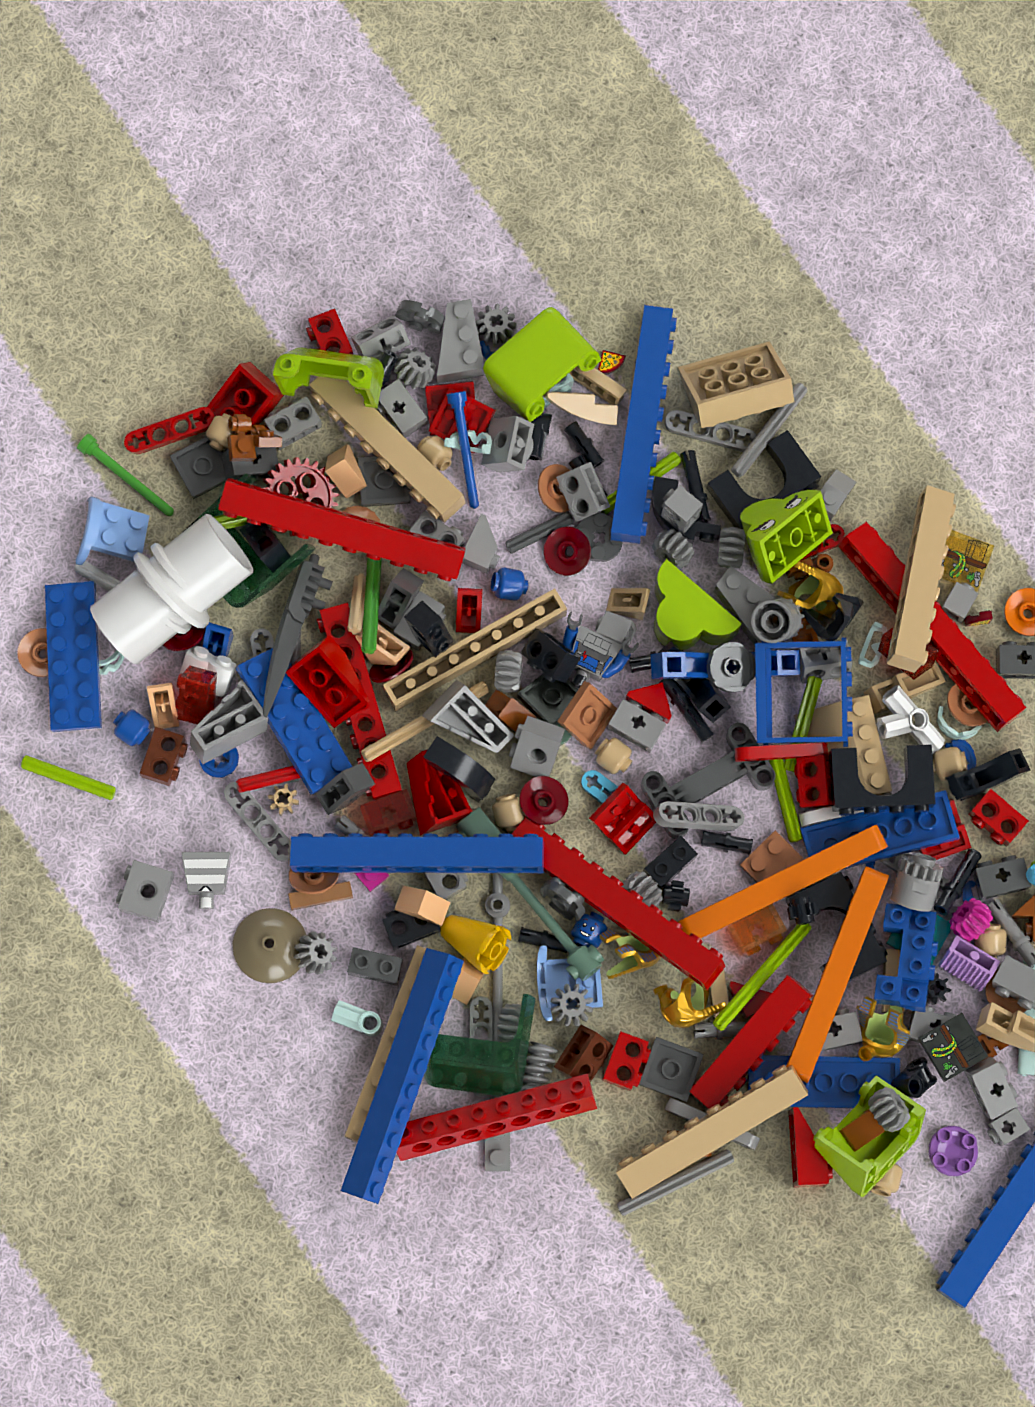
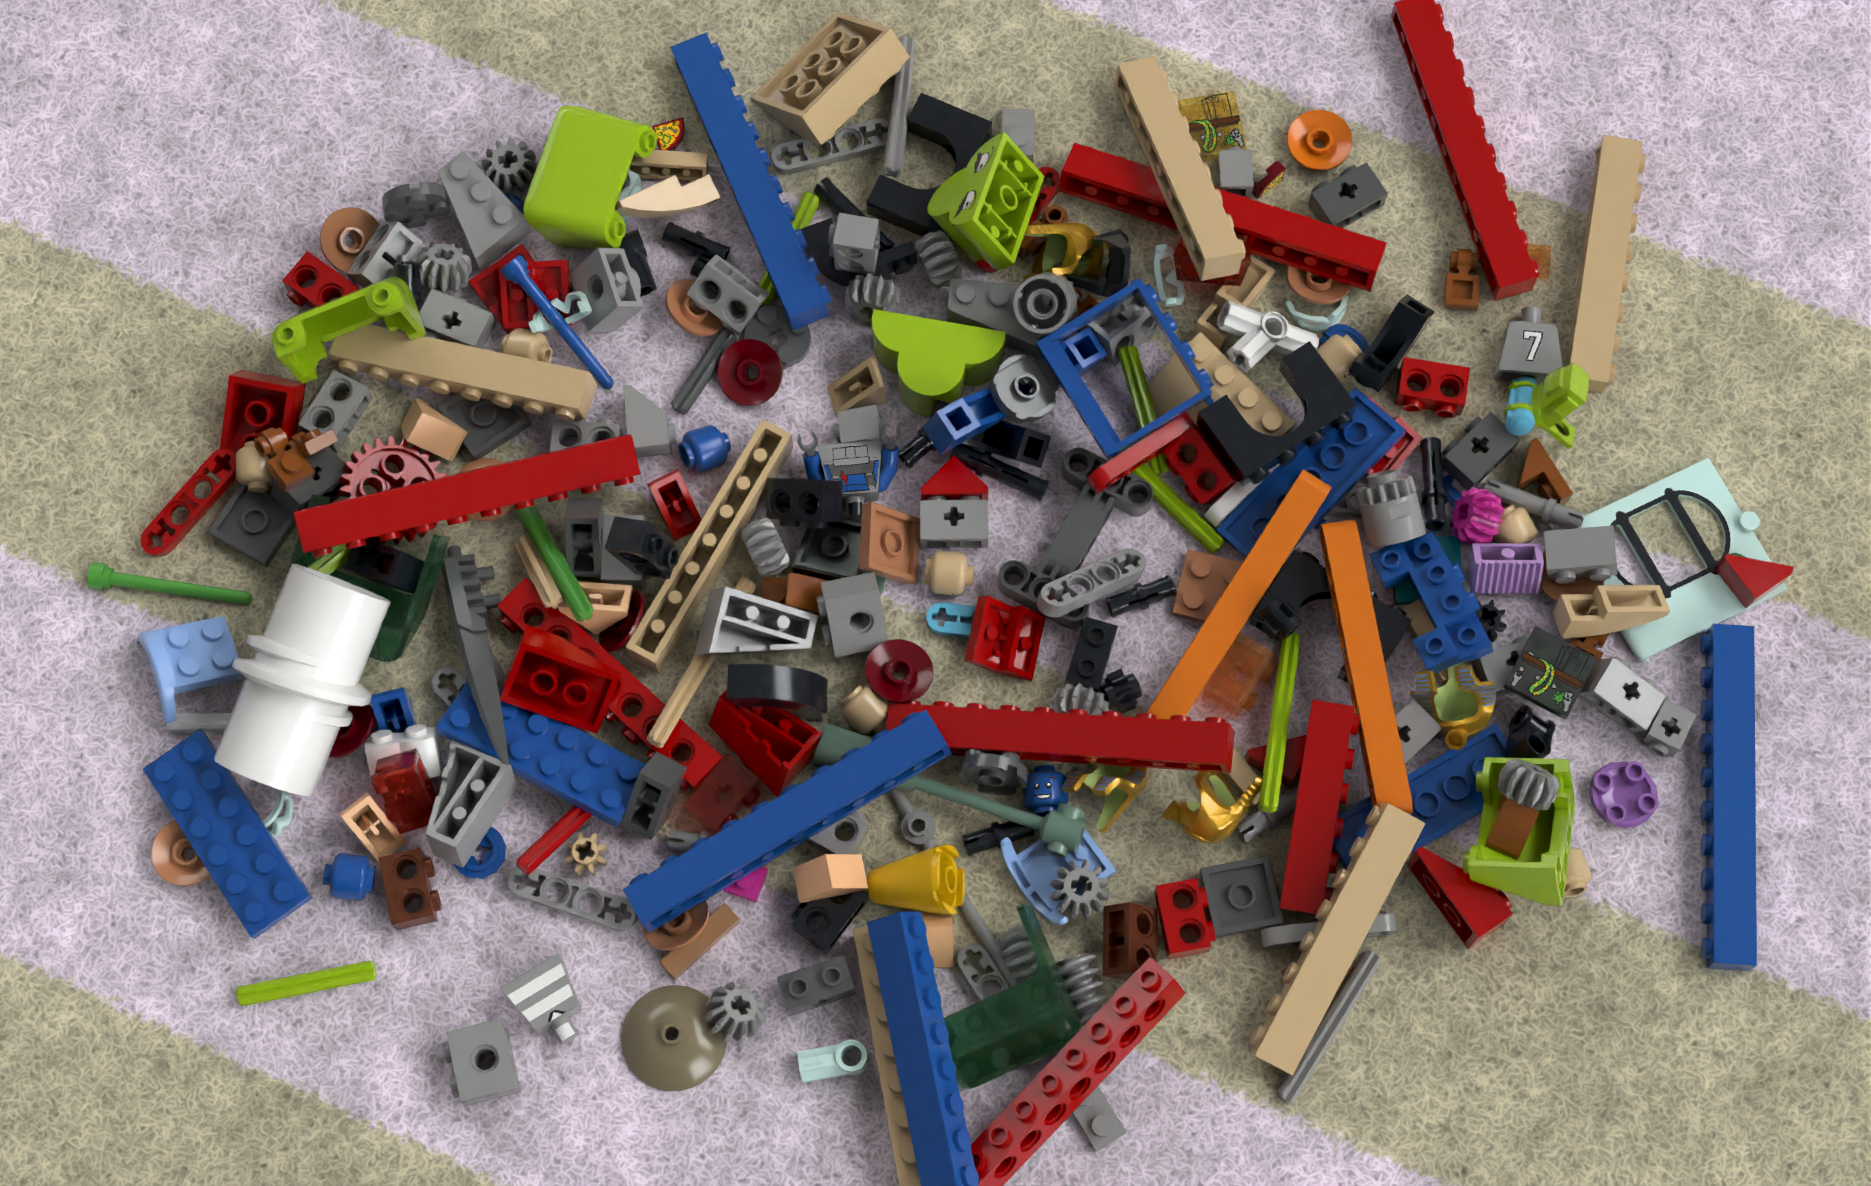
camera: 25 degrees left, 5 degrees down
(373, 303) = (351, 222): none -> nougat dish

